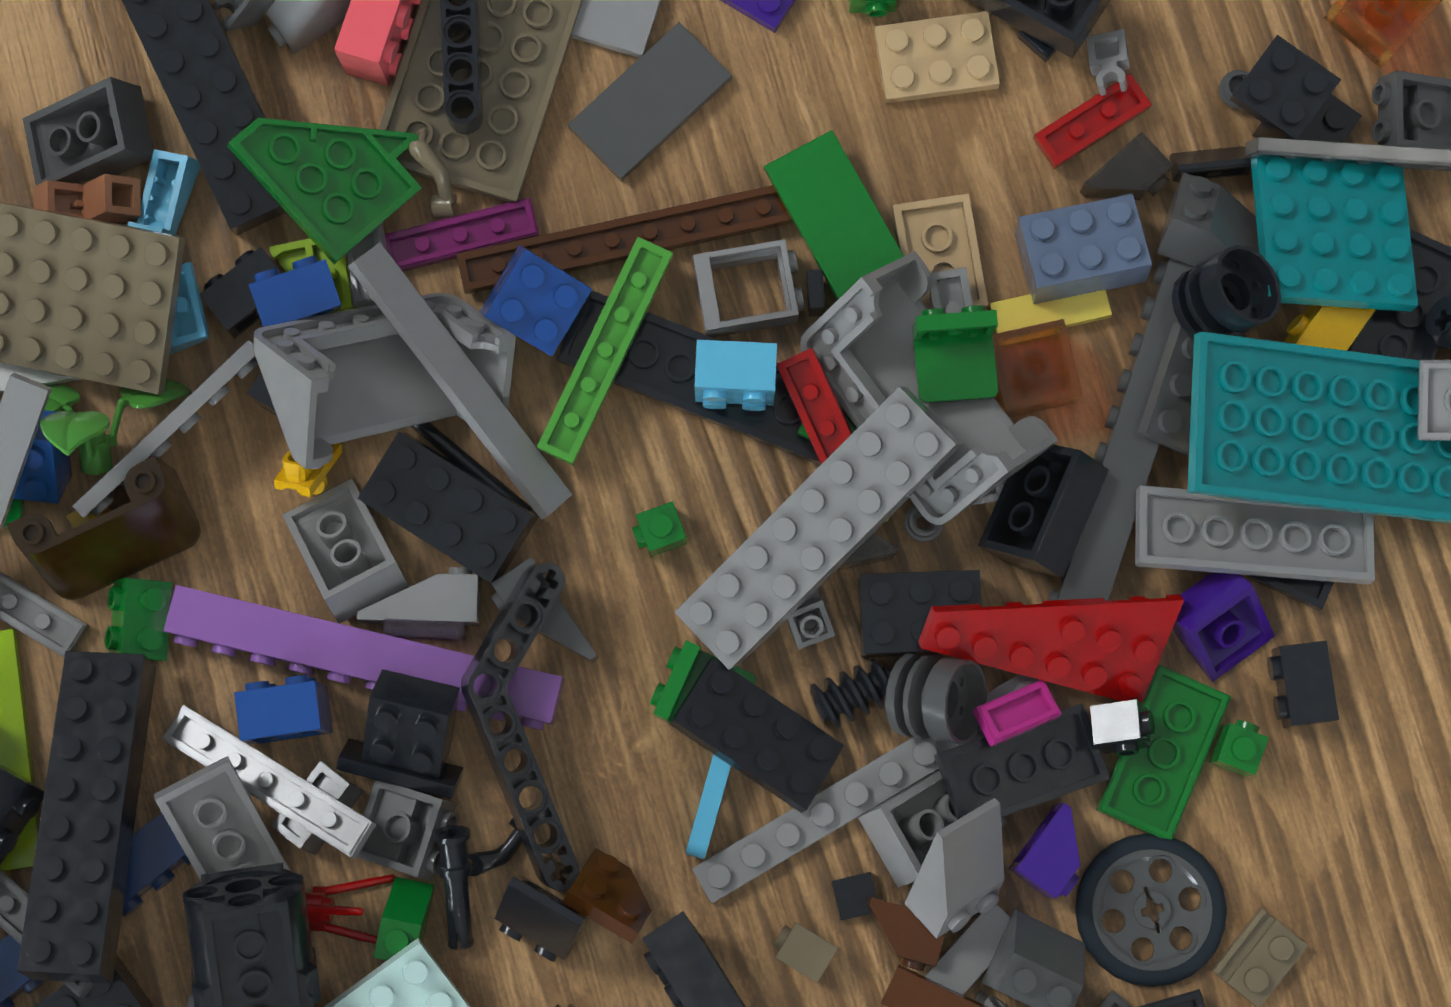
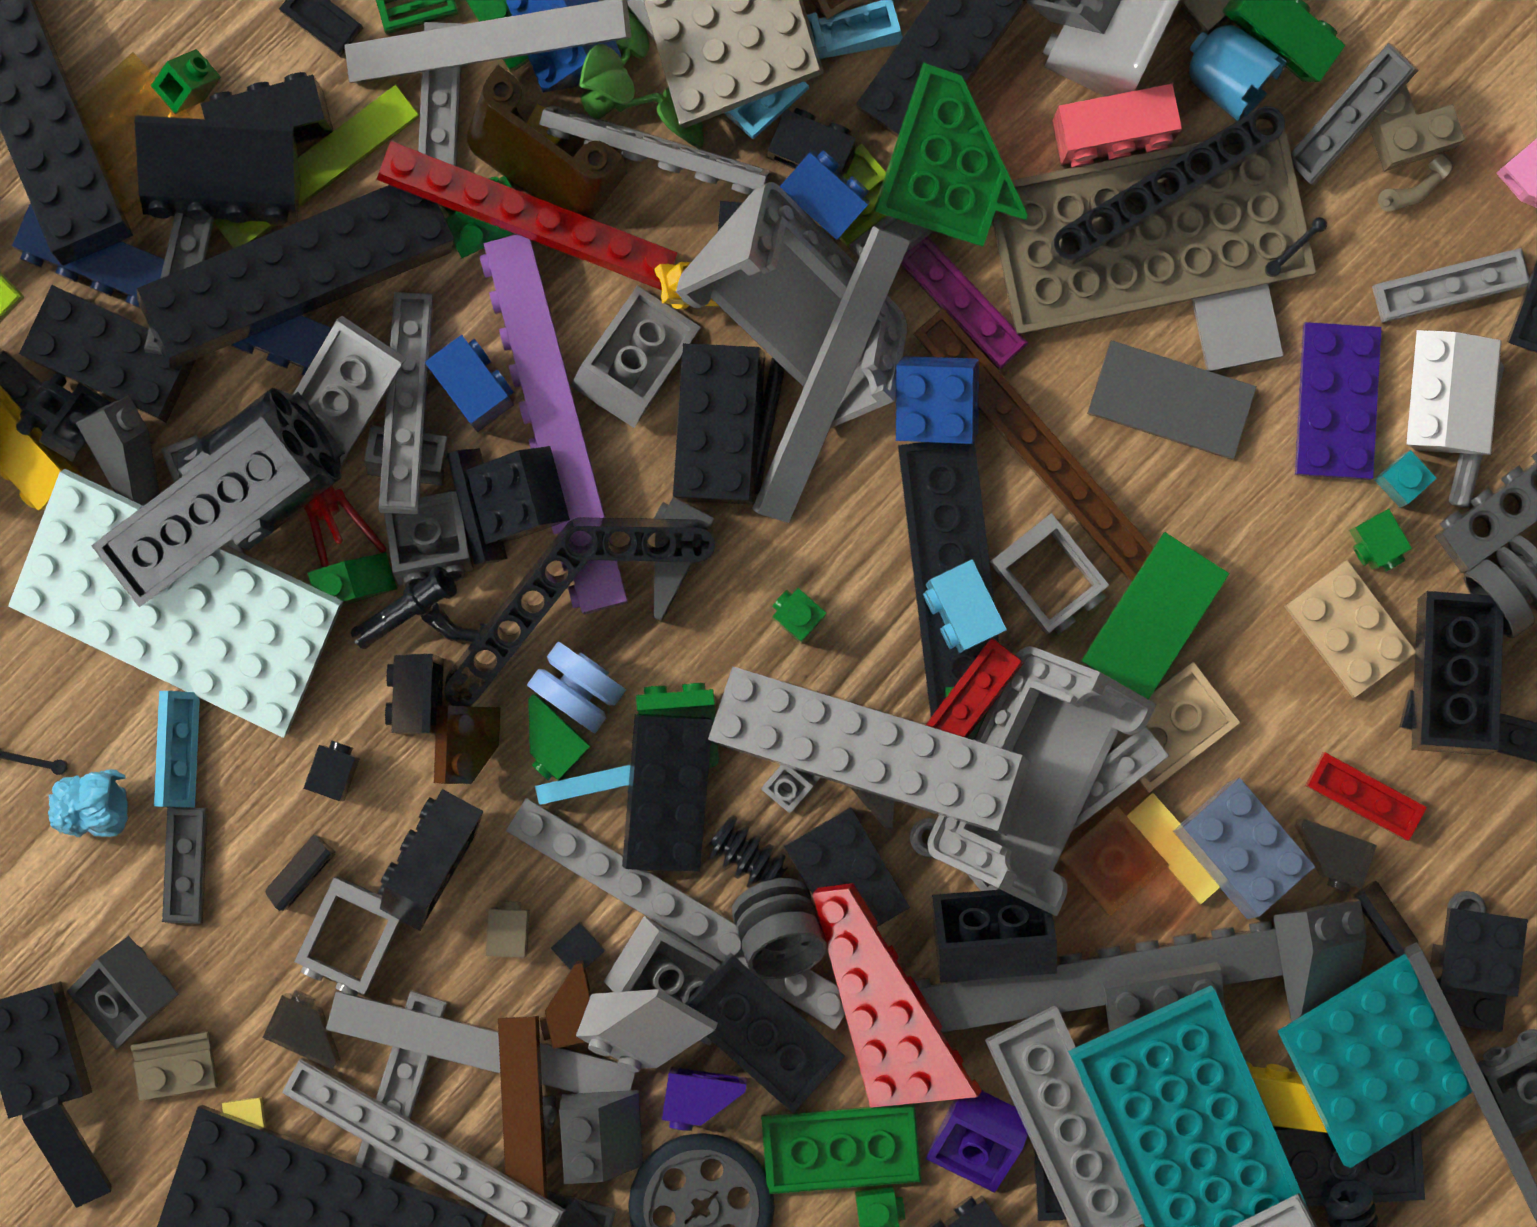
camera: 60 degrees right, 5 degrees up
(157, 580) = (523, 214): none -> red plate
(422, 152) = (1013, 229): dark tan piece -> none
(426, 629) = (605, 462): clear purple tile -> none
(438, 598) = (635, 458): light grey slope -> none
(605, 351) = (926, 483): bright green plate -> none
(613, 759) = (577, 686): none -> light blue wheel
(653, 814) = (552, 741): none -> green slope
(815, 292) = (1078, 636): black tile -> none
(955, 354) = (1082, 788): green bracket -> none
(1016, 712) = (804, 1004): dark pink tile -> none
(1108, 58) = (1430, 780): light grey plate -> none
(1121, 727) = (841, 1100): brick -> none
(1227, 293) = (1263, 995): black wheel -> none

